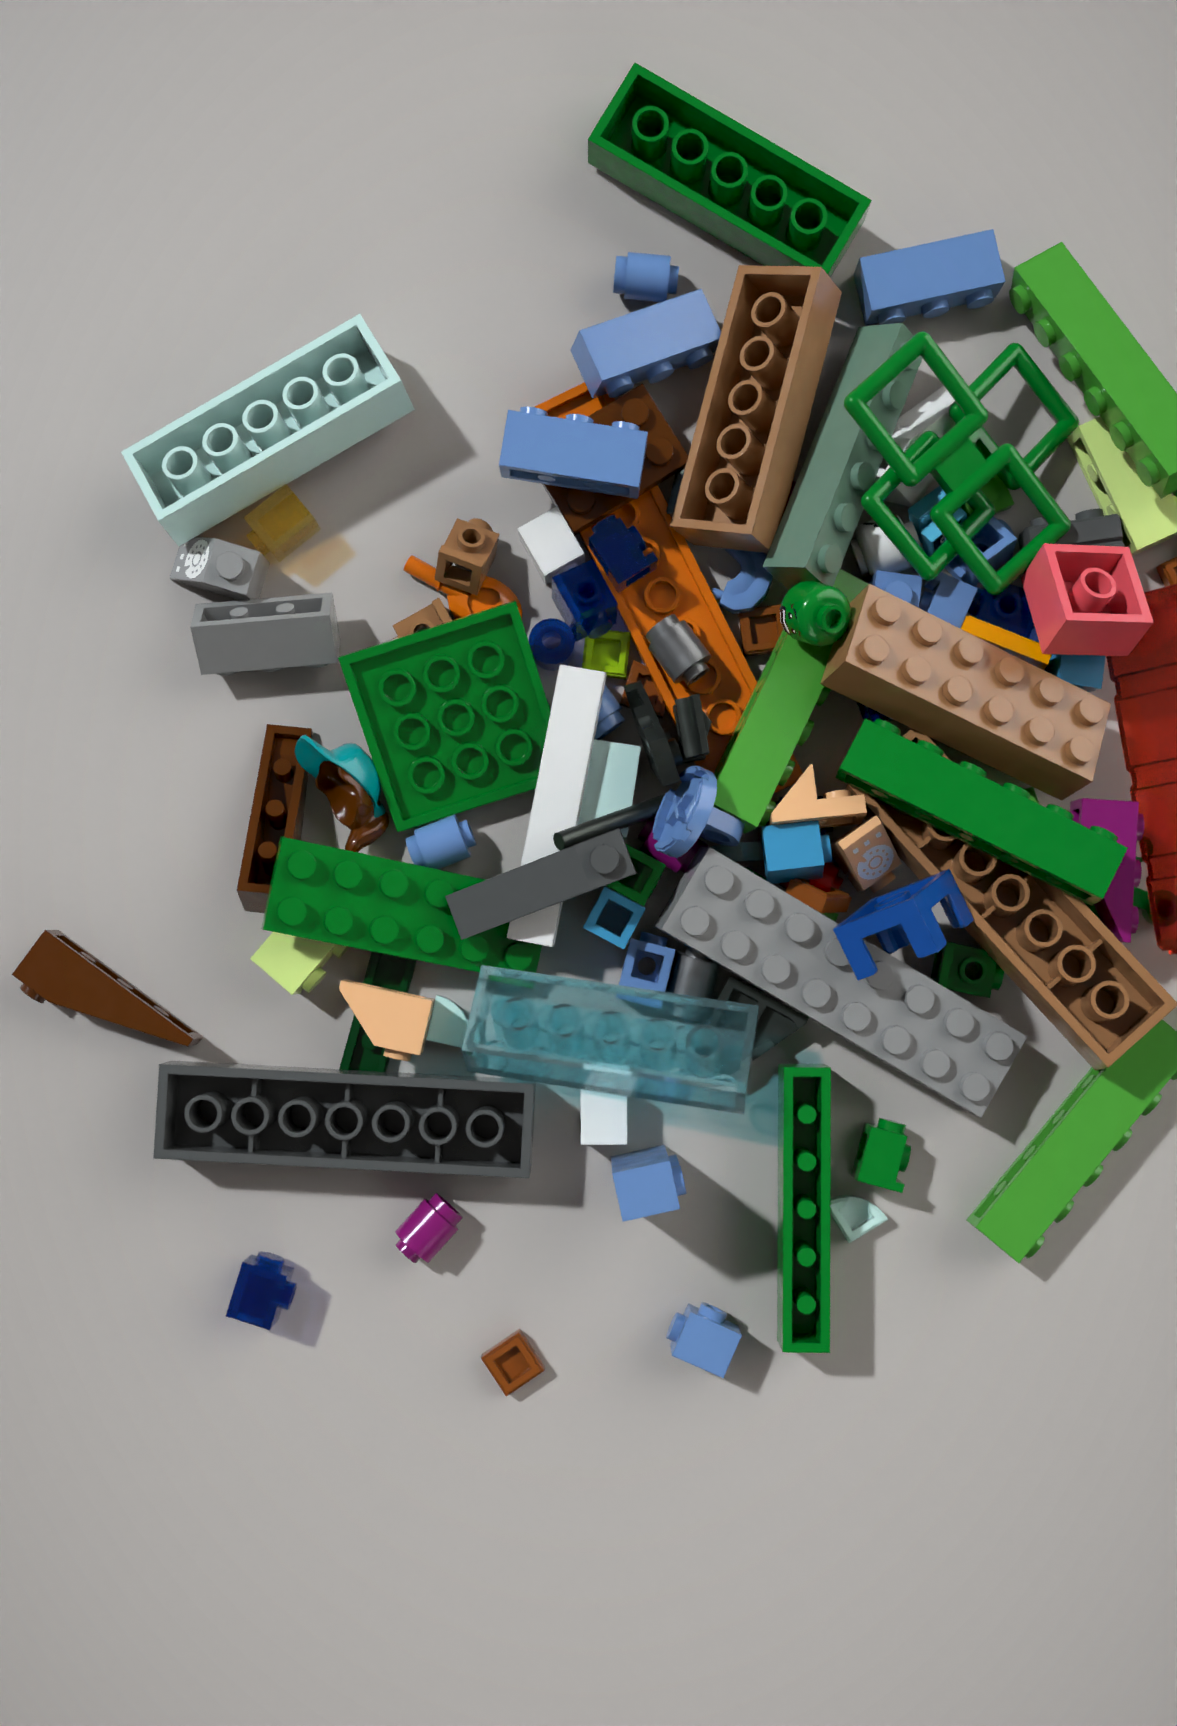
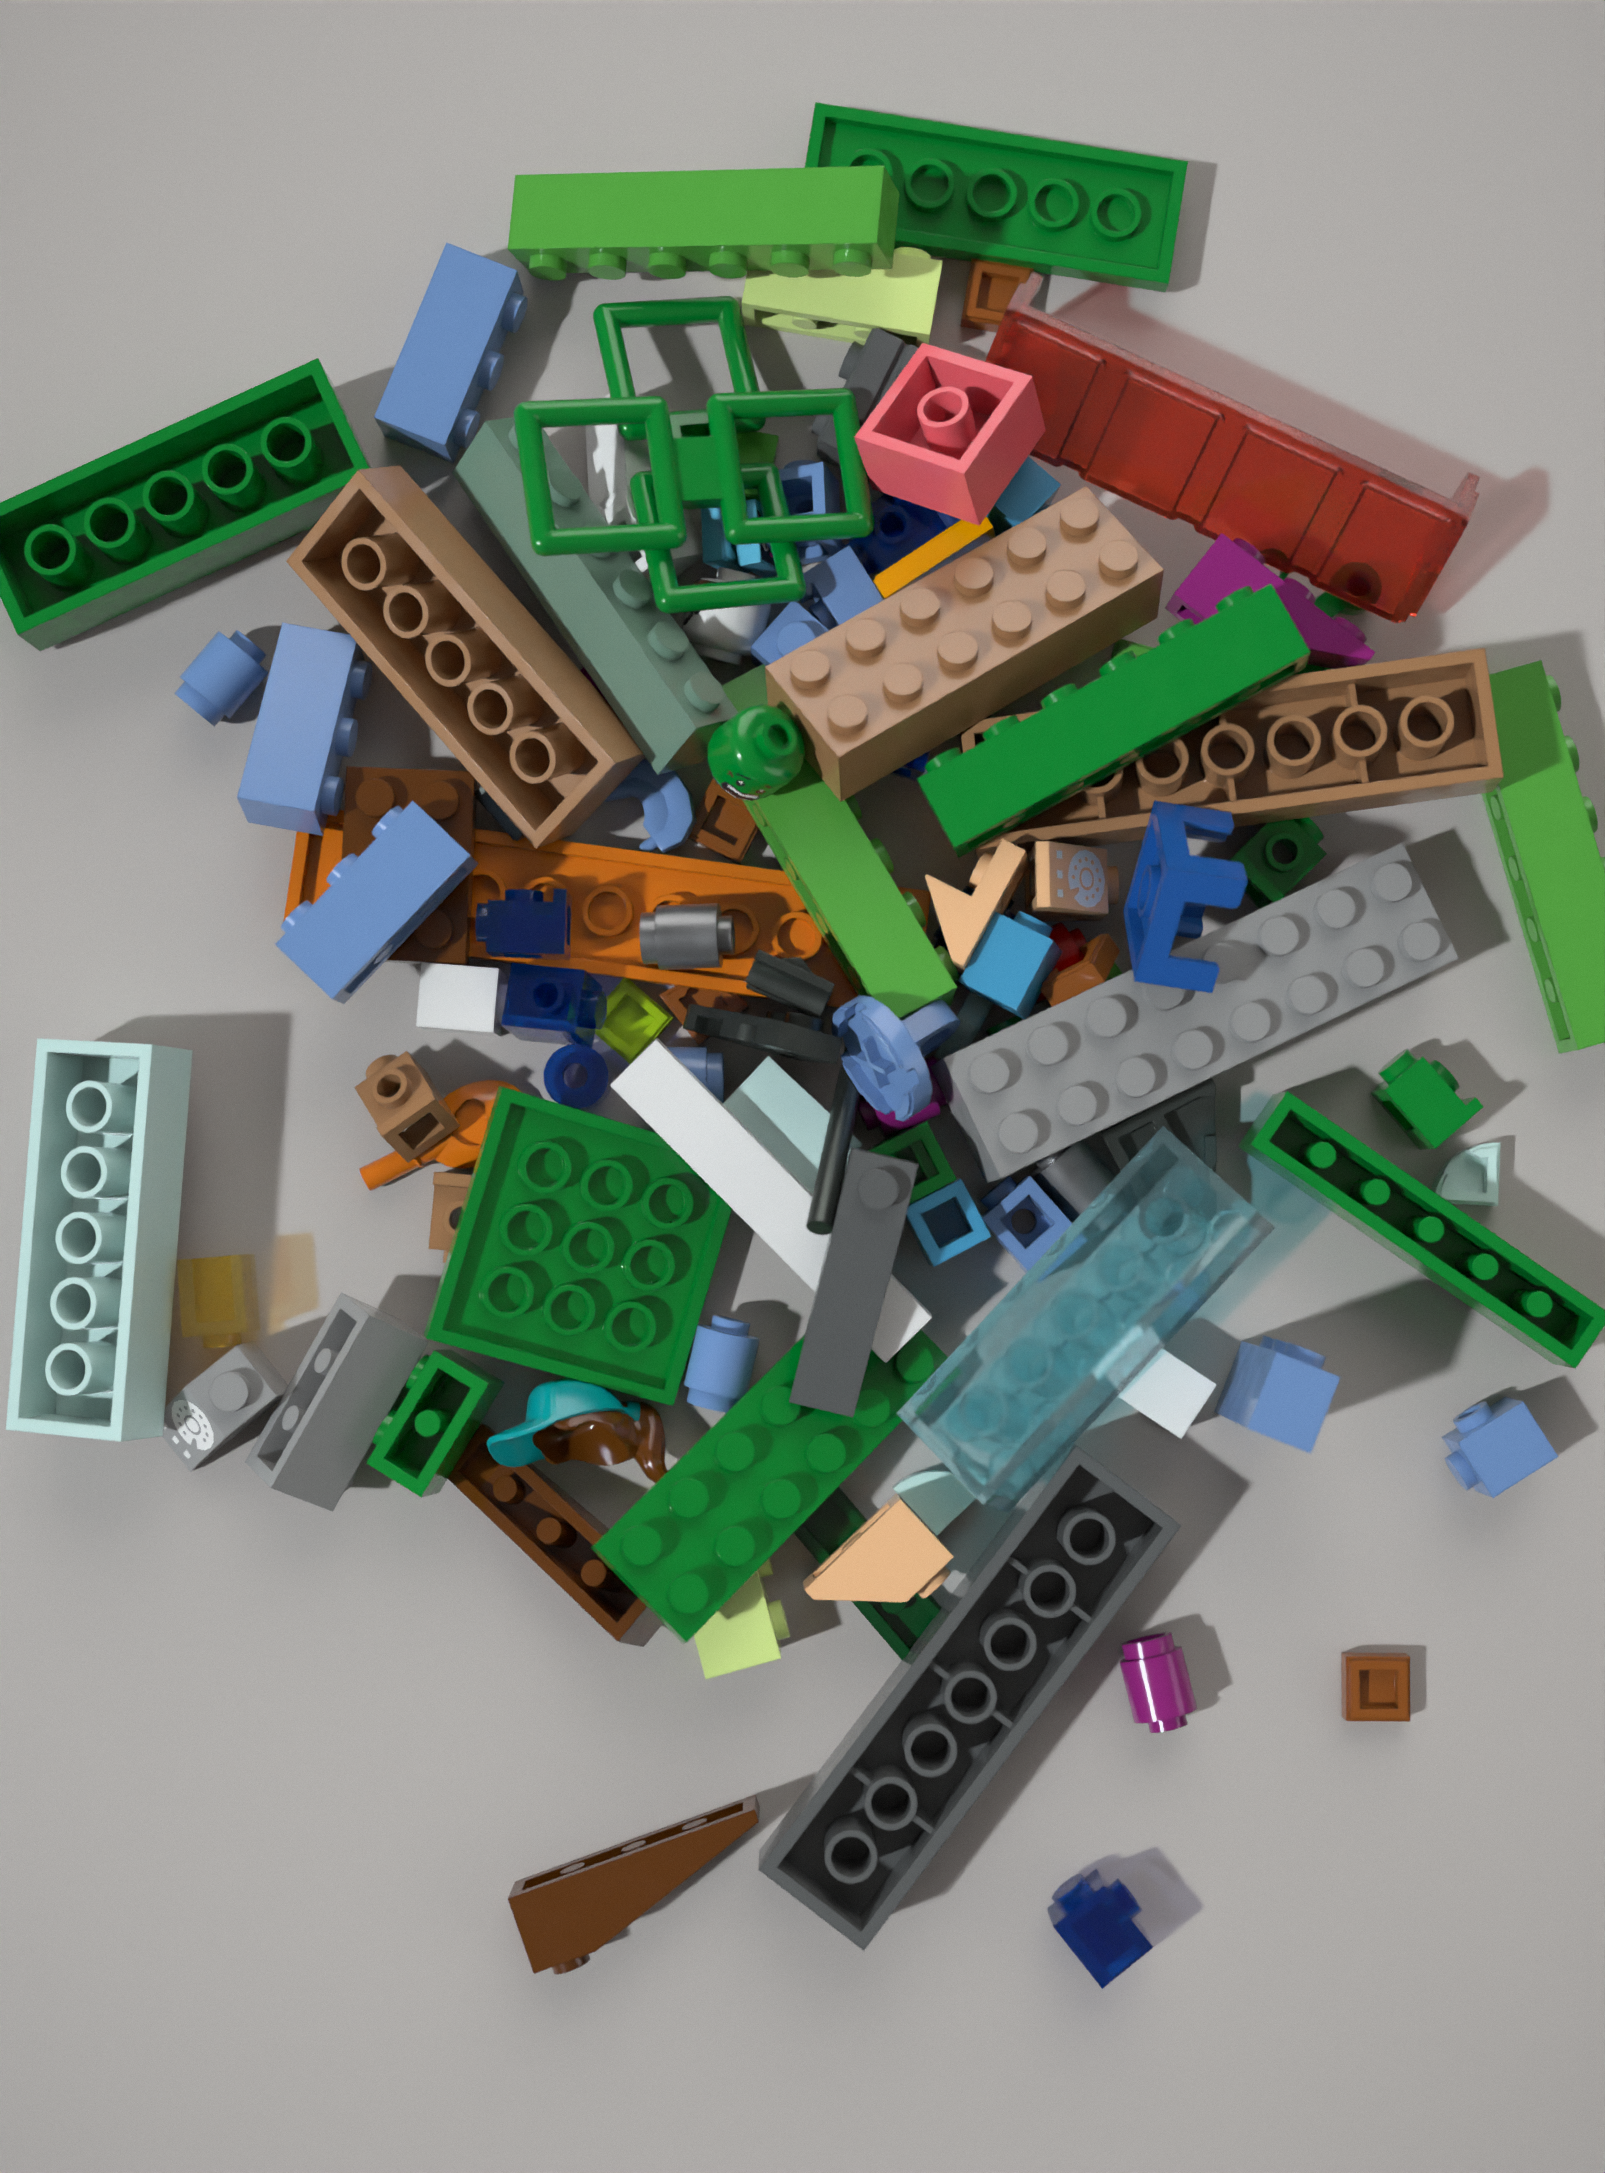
camera: 65 degrees left, 0 degrees up
(293, 698) = (434, 1421): none -> green brick

